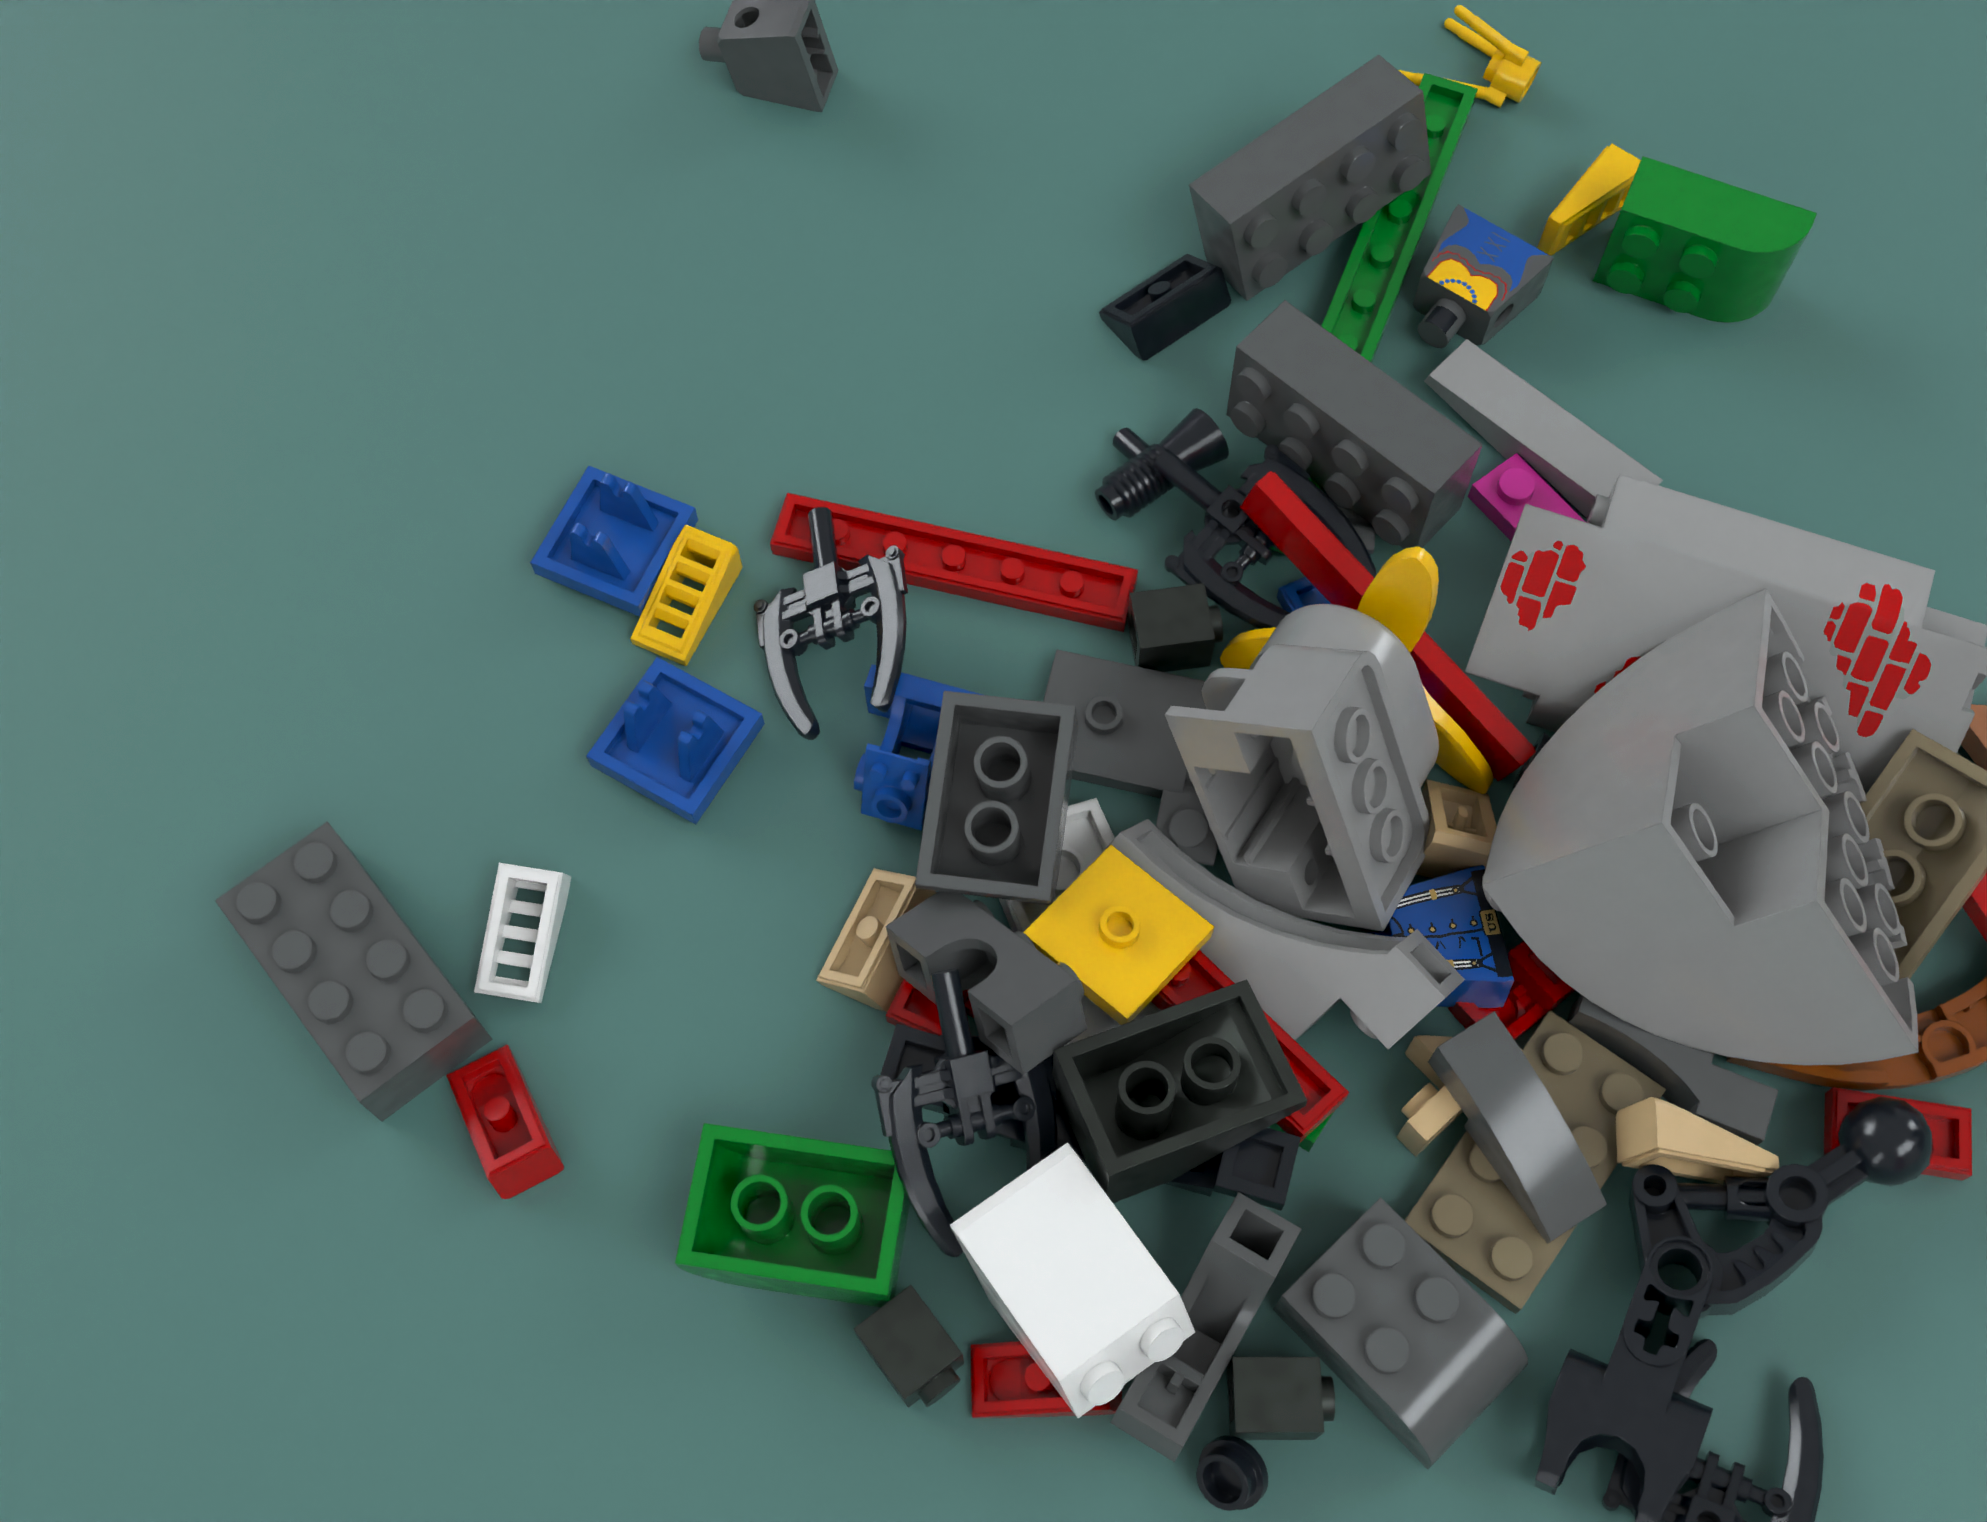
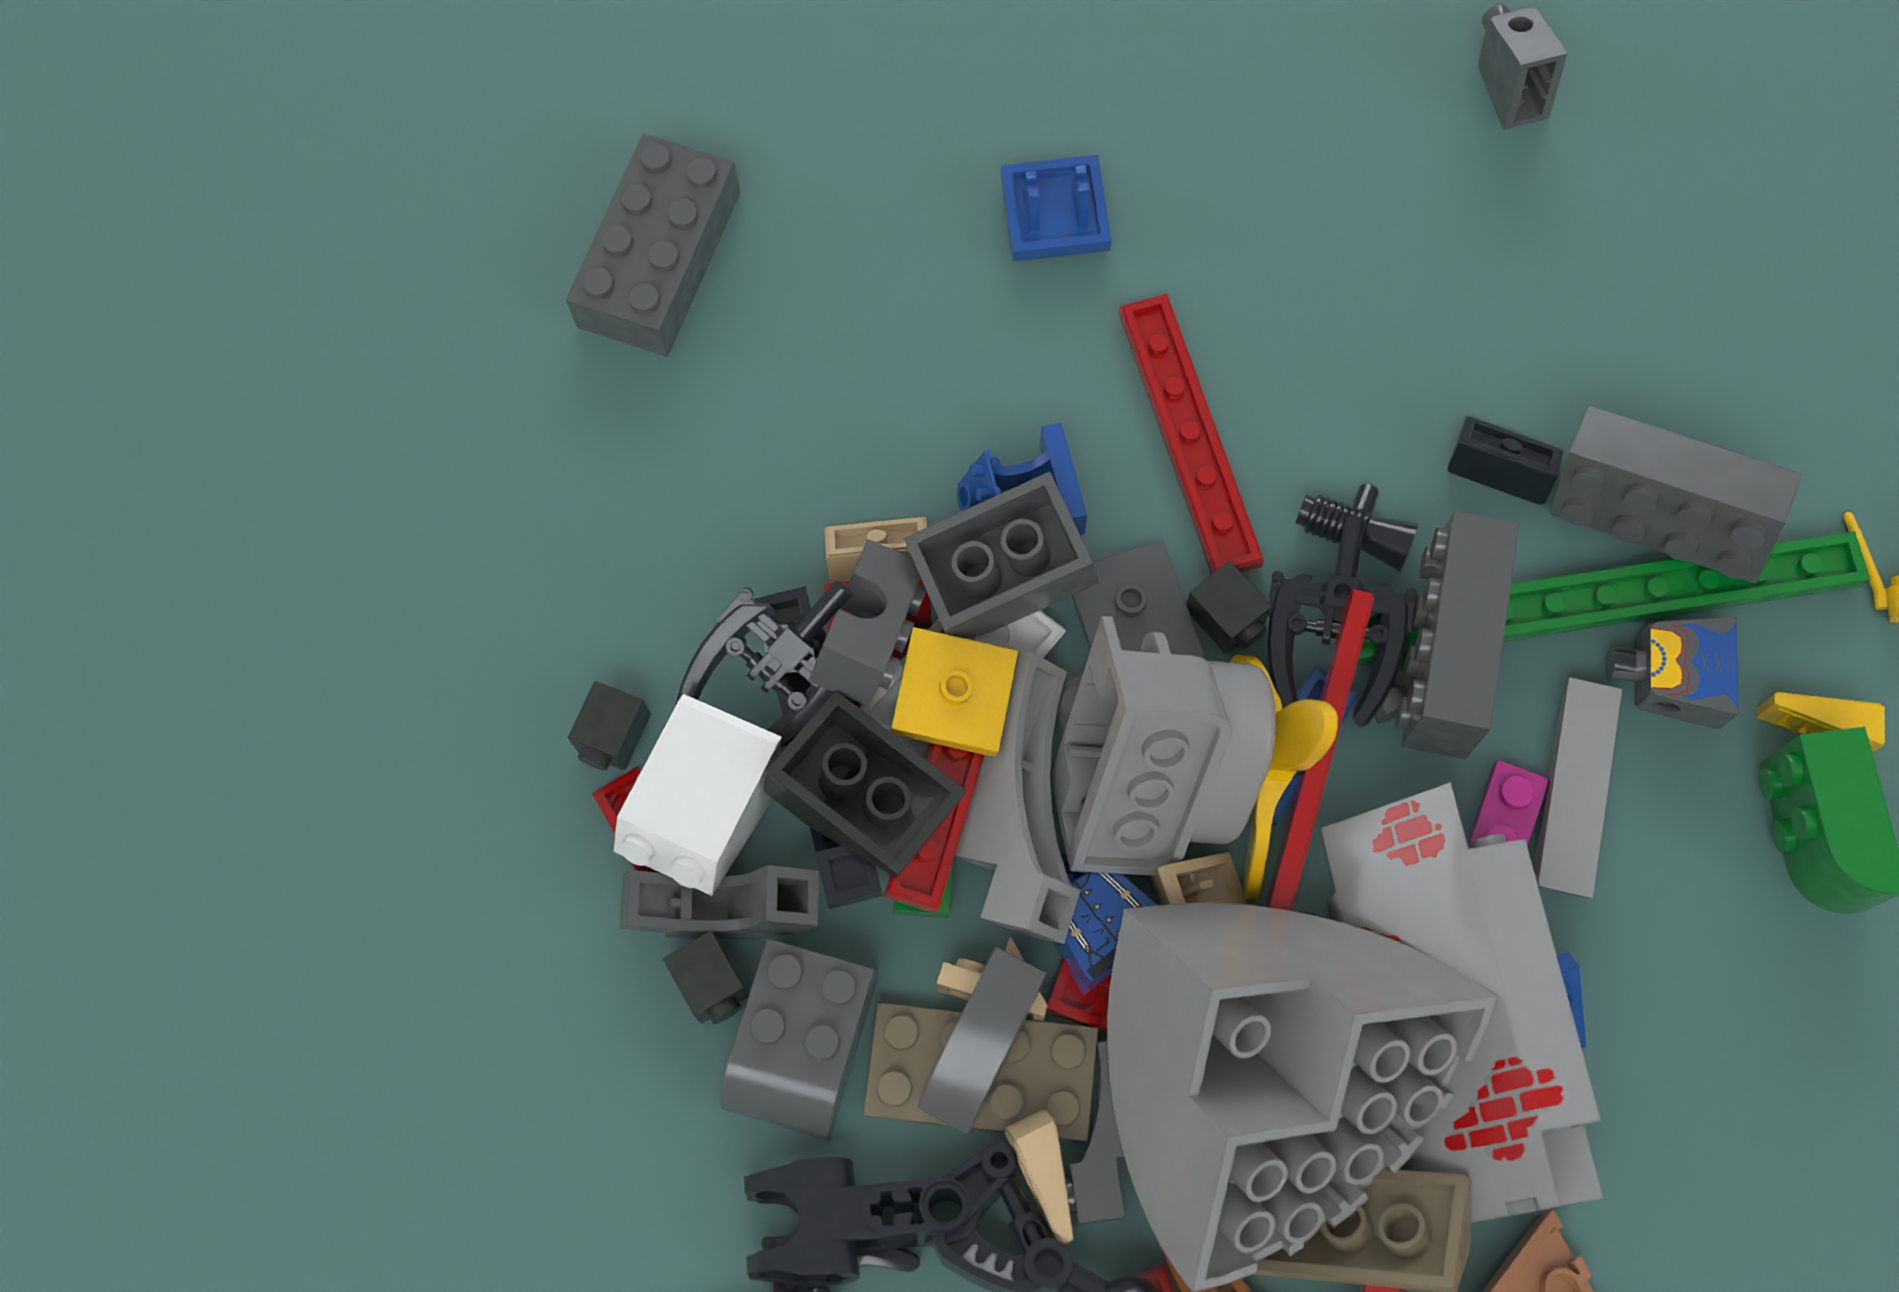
camera: 60 degrees right, 5 degrees up
(503, 904) = (752, 342): white slope -> none
(504, 1123) = (615, 398): red slope -> none
(676, 740) = (934, 336): blue plate -> none
(688, 547) = (1058, 259): yellow slope -> none
(794, 1216) = (645, 602): green brick -> none
(830, 599) = (1096, 366): black bar -> none
(1231, 1473) = (641, 976): black plate -> none

